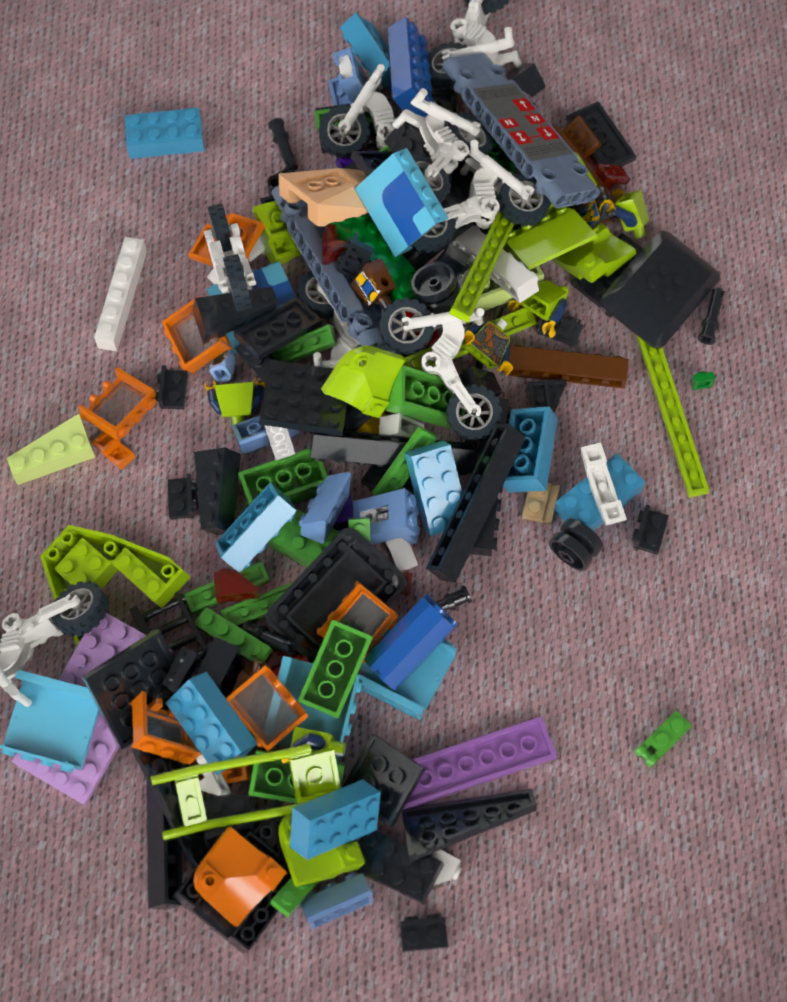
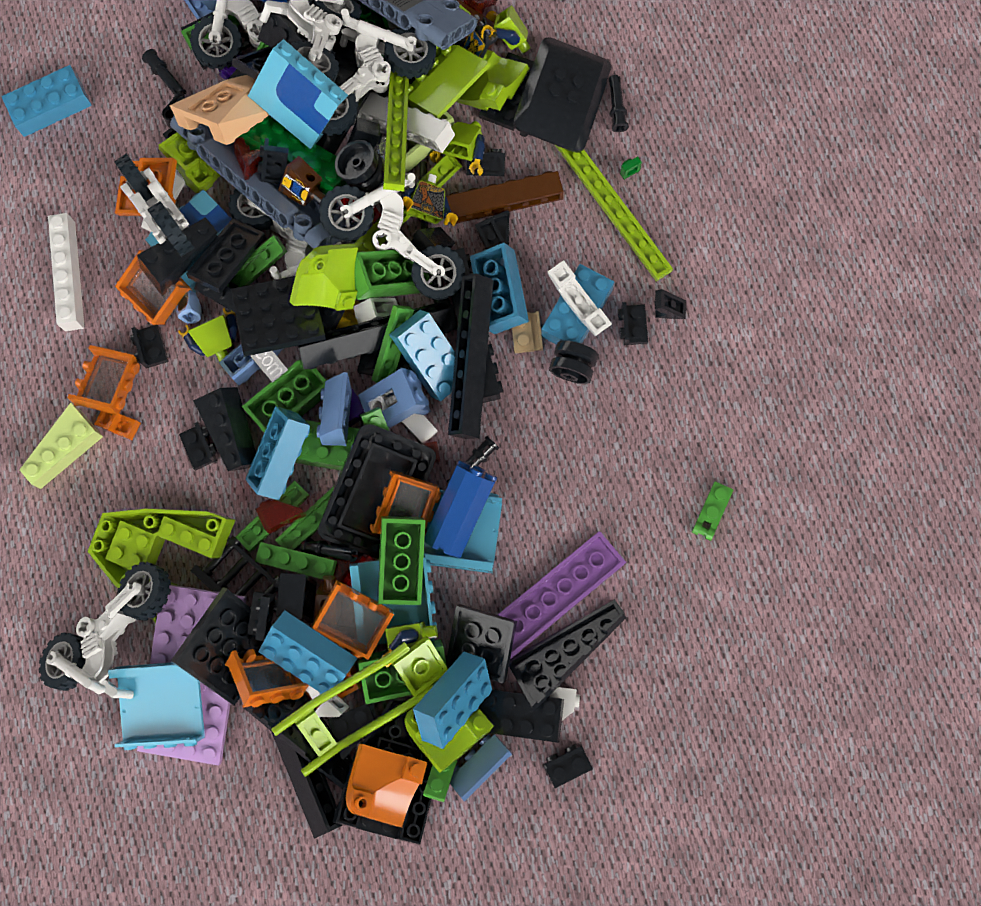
camera: 15 degrees left, 10 degrees up
(692, 524) = (669, 305): none -> black slope

